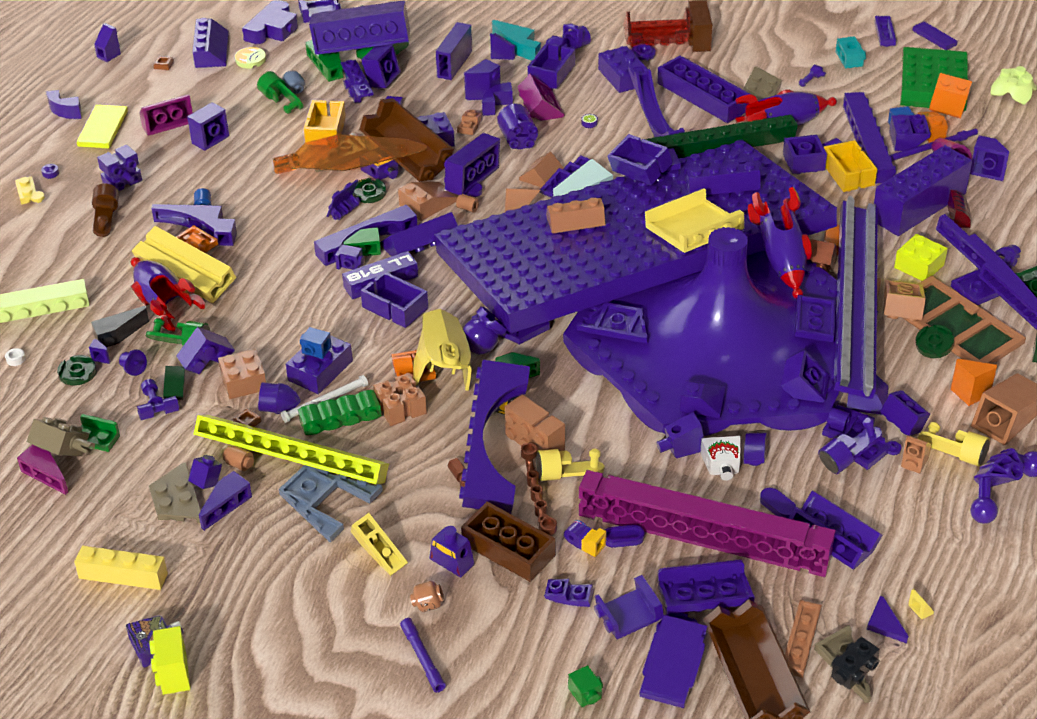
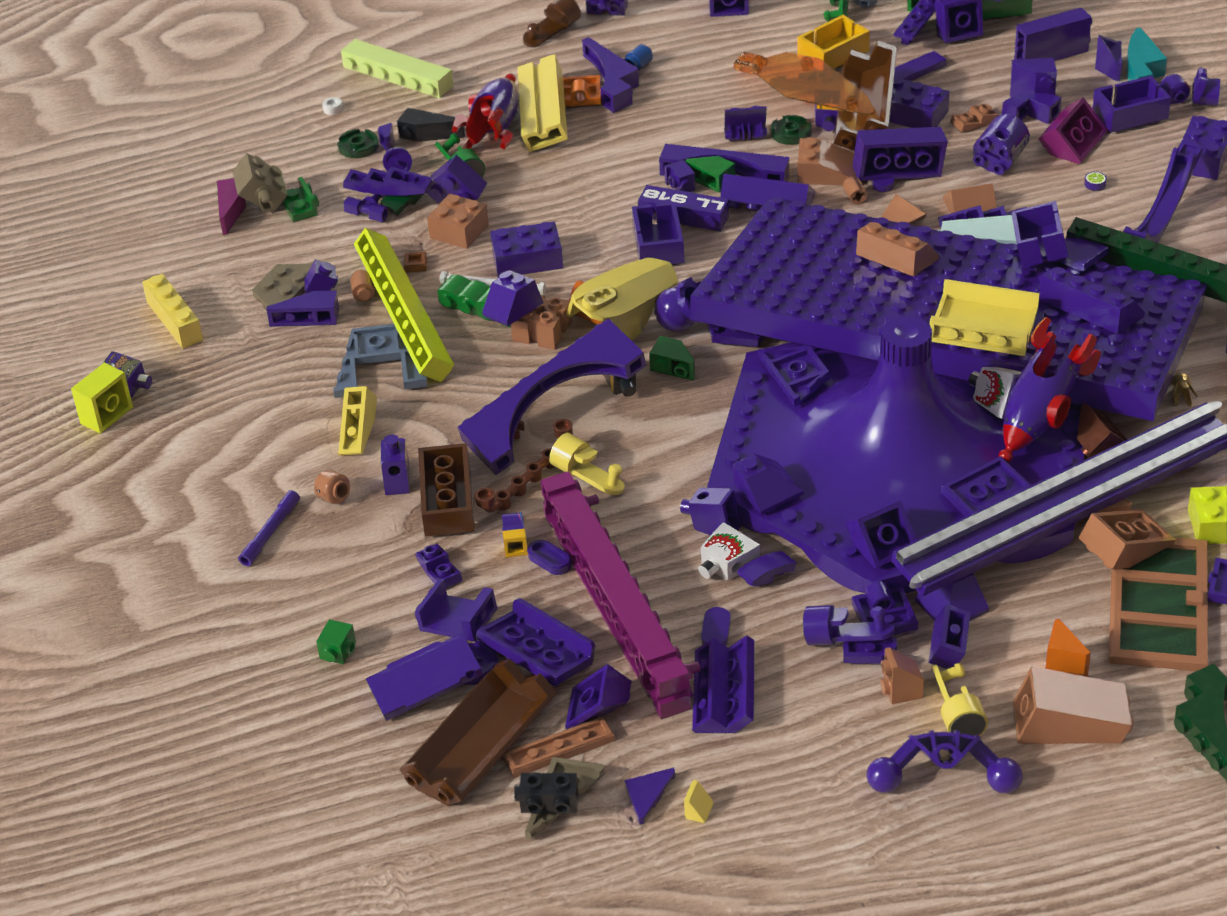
camera: 50 degrees right, 0 degrees up
(165, 375) = (387, 183): none -> dark purple slope
(277, 398) = (449, 254): dark purple helmet -> none
(315, 342) = (524, 225): blue brick -> none
(379, 393) = (511, 298): none -> dark purple slope
(520, 423) = (598, 413): nougat piece -> none
(756, 257) = (993, 388): none -> white torso
(784, 592) = (597, 696): none -> dark purple slope
(934, 341) = (1101, 600): dark green tile -> none

